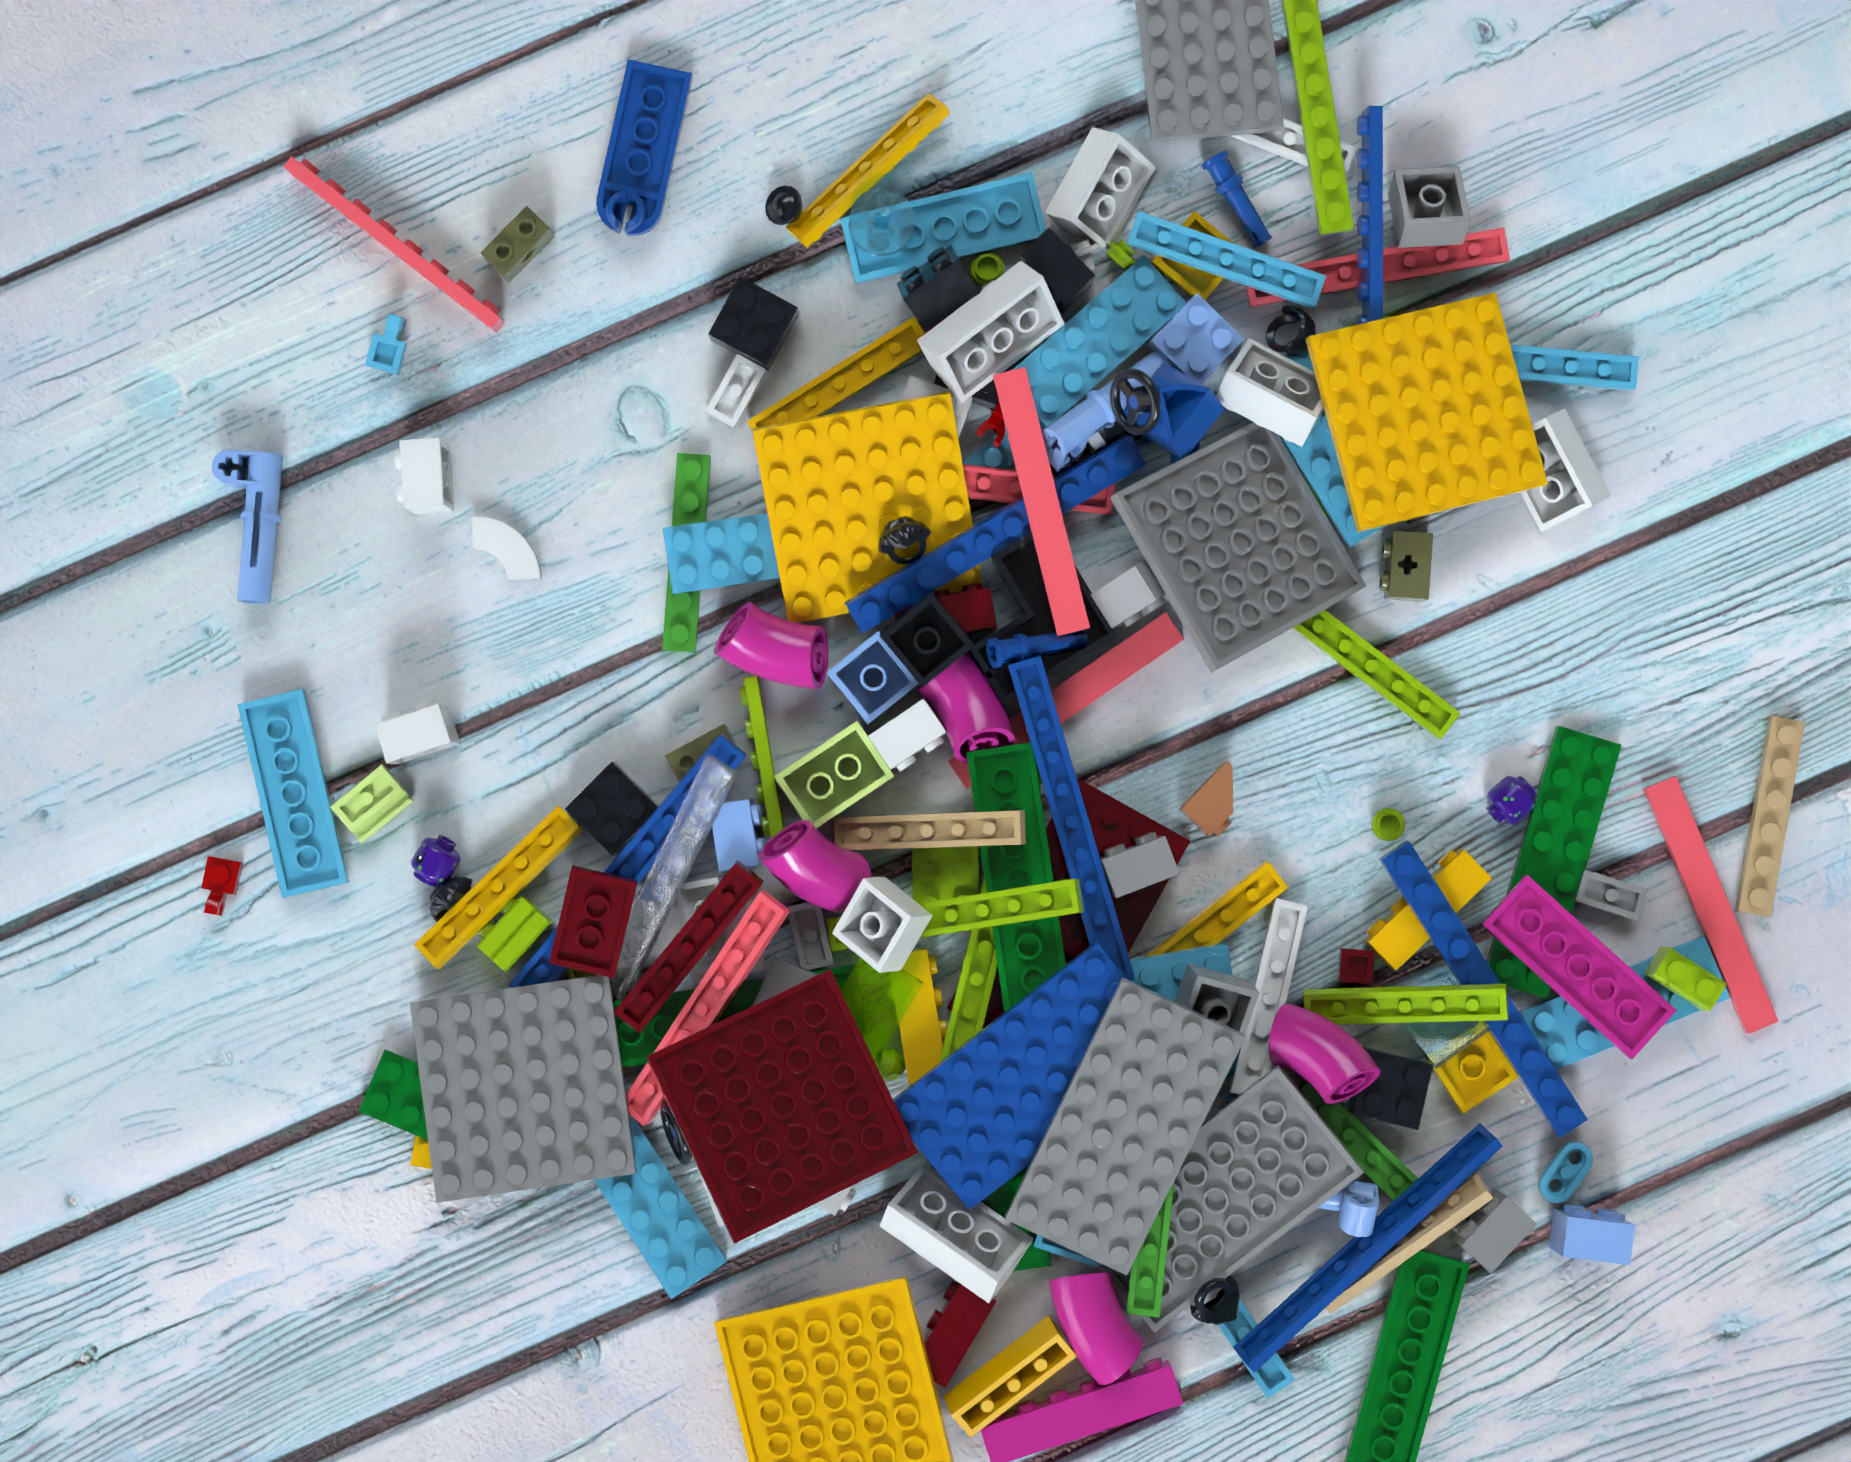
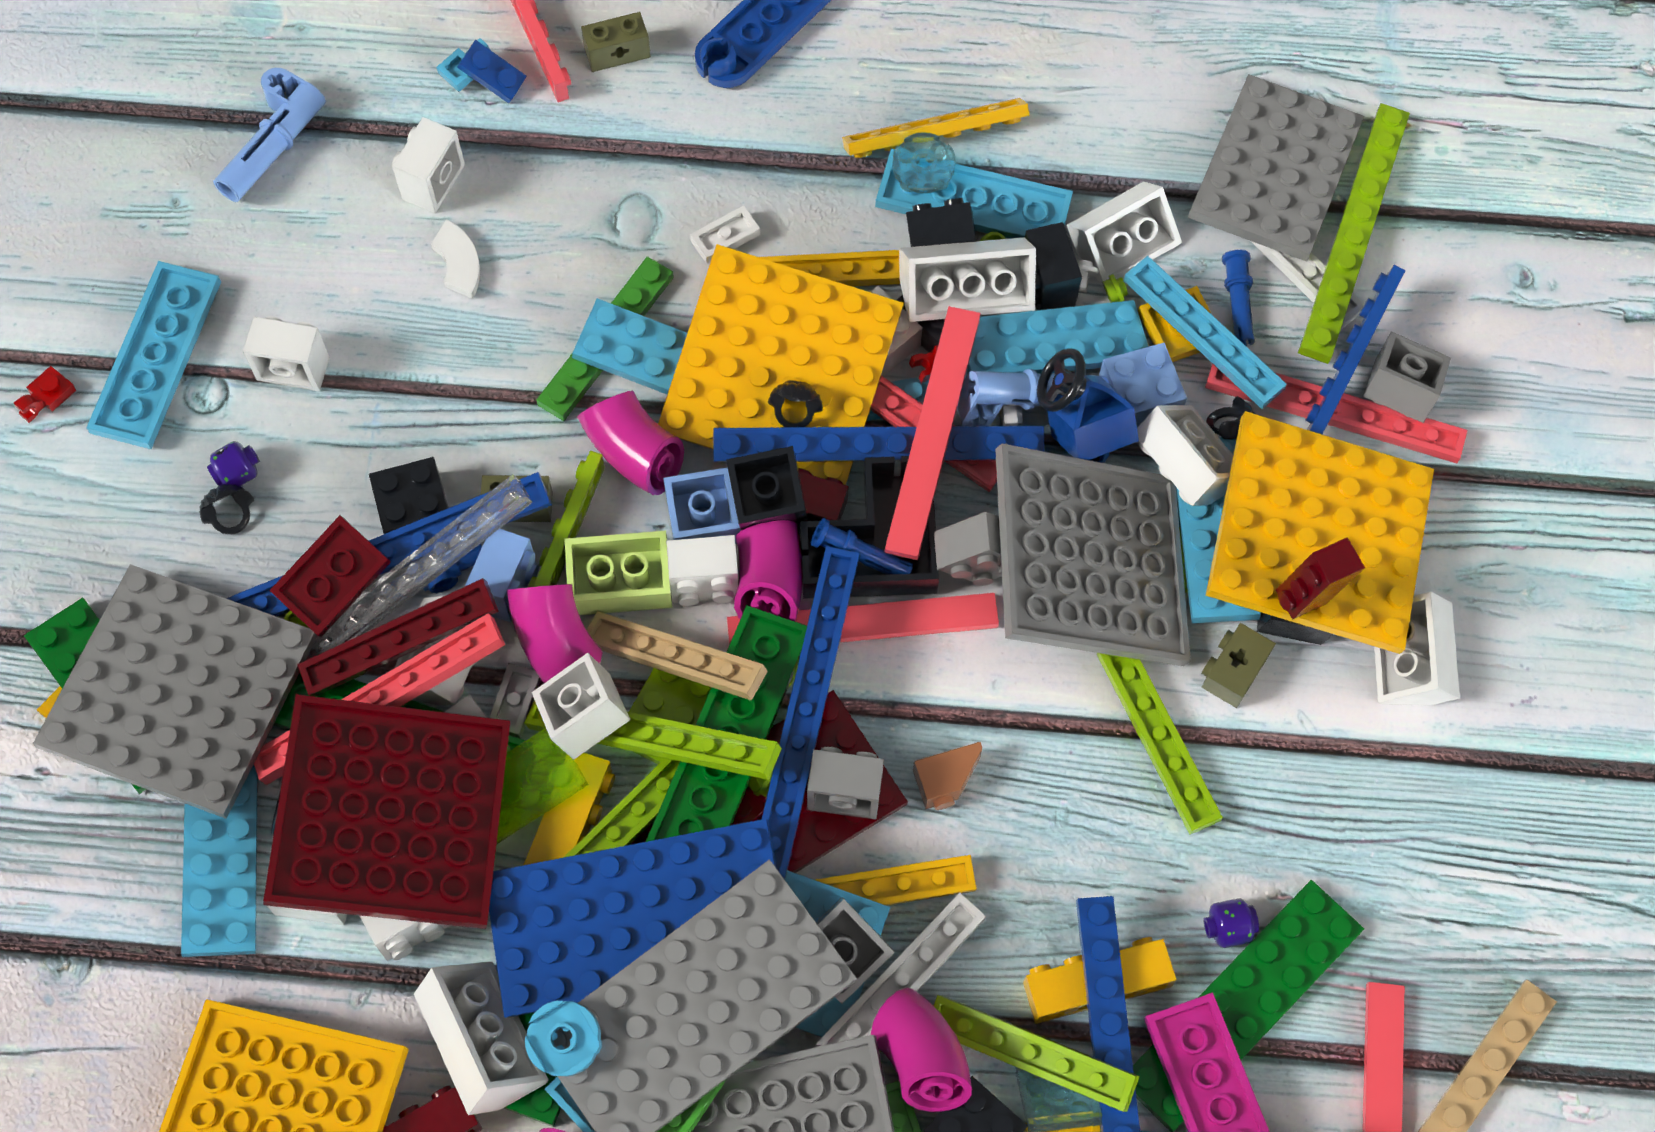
camera: 30 degrees right, 20 degrees down
(371, 803) = (212, 395): yellowish green plate -> none
(420, 341) = (492, 71): none -> blue plate
(498, 887) = (269, 514): yellow plate -> none
(514, 932) = (257, 559): lime brick -> none
(753, 323) = (772, 189): black brick -> none
(783, 205) = (850, 119): black hat -> none
(891, 1064) = (514, 850): lime plate -> none
(1041, 1228) = (542, 1033): none -> medium azure plate
(1356, 966) = (1002, 998): dark red plate -> none
(1388, 824) = (1101, 883): lime plate -> none
(1457, 482) = (1319, 578): none -> dark red brick
(1576, 367) = (1477, 577): medium azure plate -> none
(1611, 895) = (1285, 1064): light grey plate -> none

